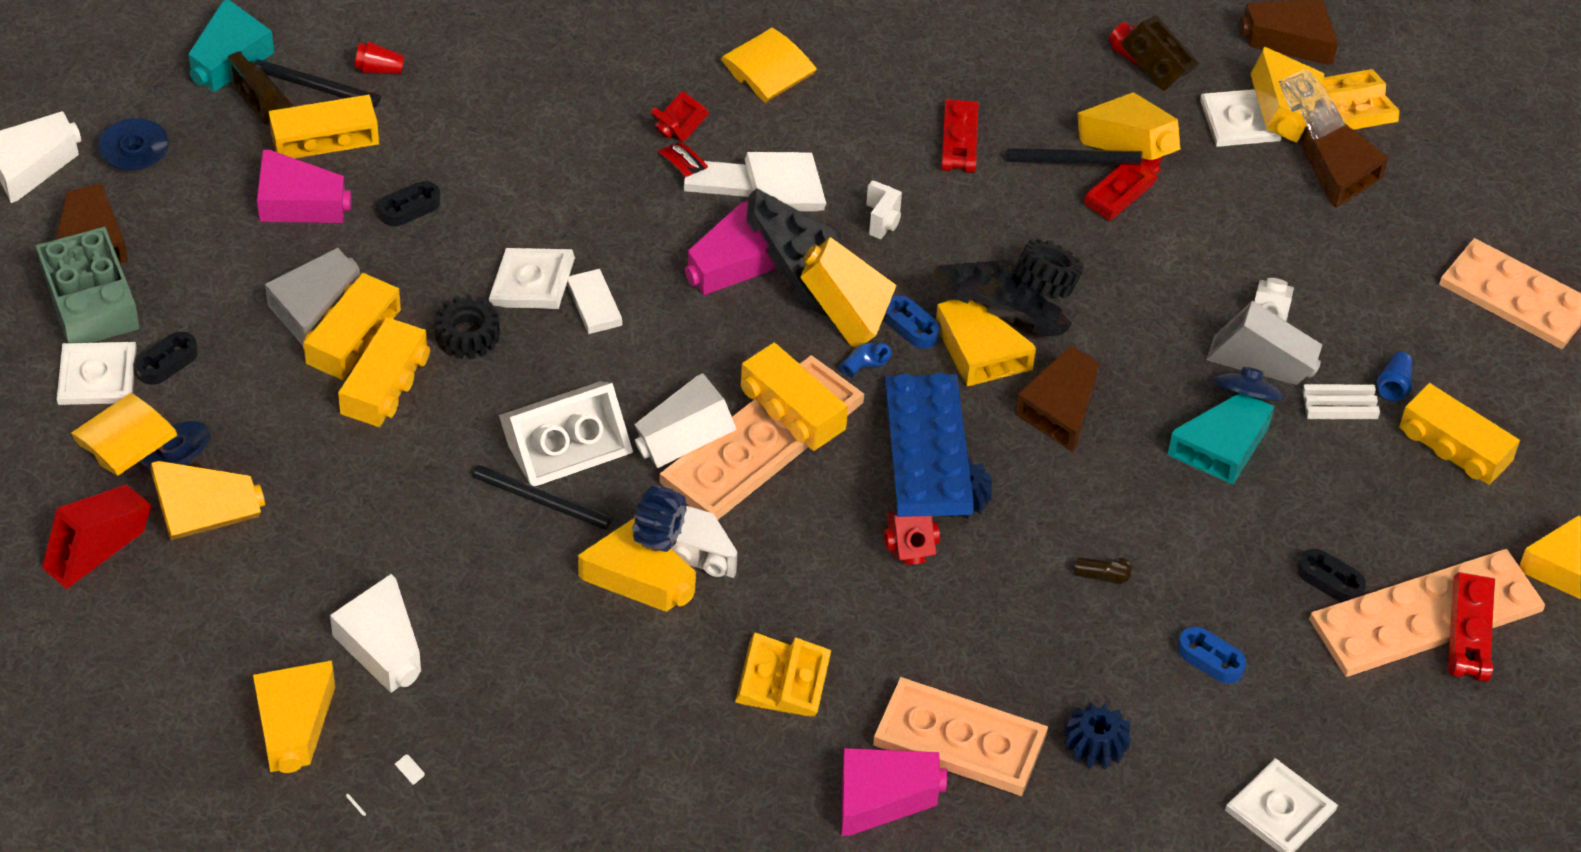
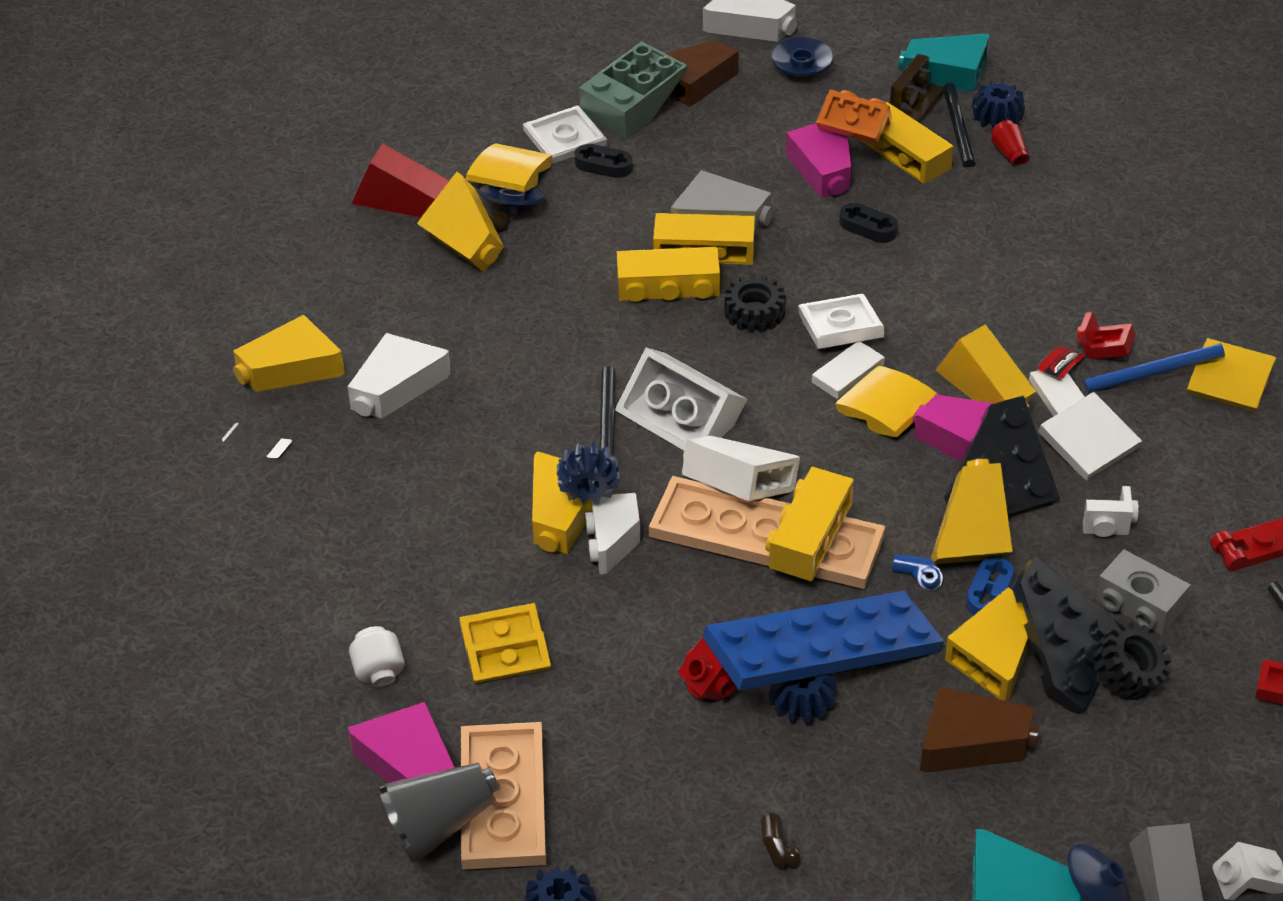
camera: 70 degrees right, 5 degrees down
(289, 139) = (854, 116): none -> orange bracket
(320, 42) = (997, 104): none -> dark blue gear
(655, 291) = (885, 400): none -> yellow slope
(675, 209) = (984, 369): none -> yellow slope
(735, 104) = (1154, 368): none -> blue bar
(753, 773) = (376, 656): none -> white head
(974, 778) = (437, 805): none -> dark grey cone
(977, 230) = (1142, 592): none -> light grey brick

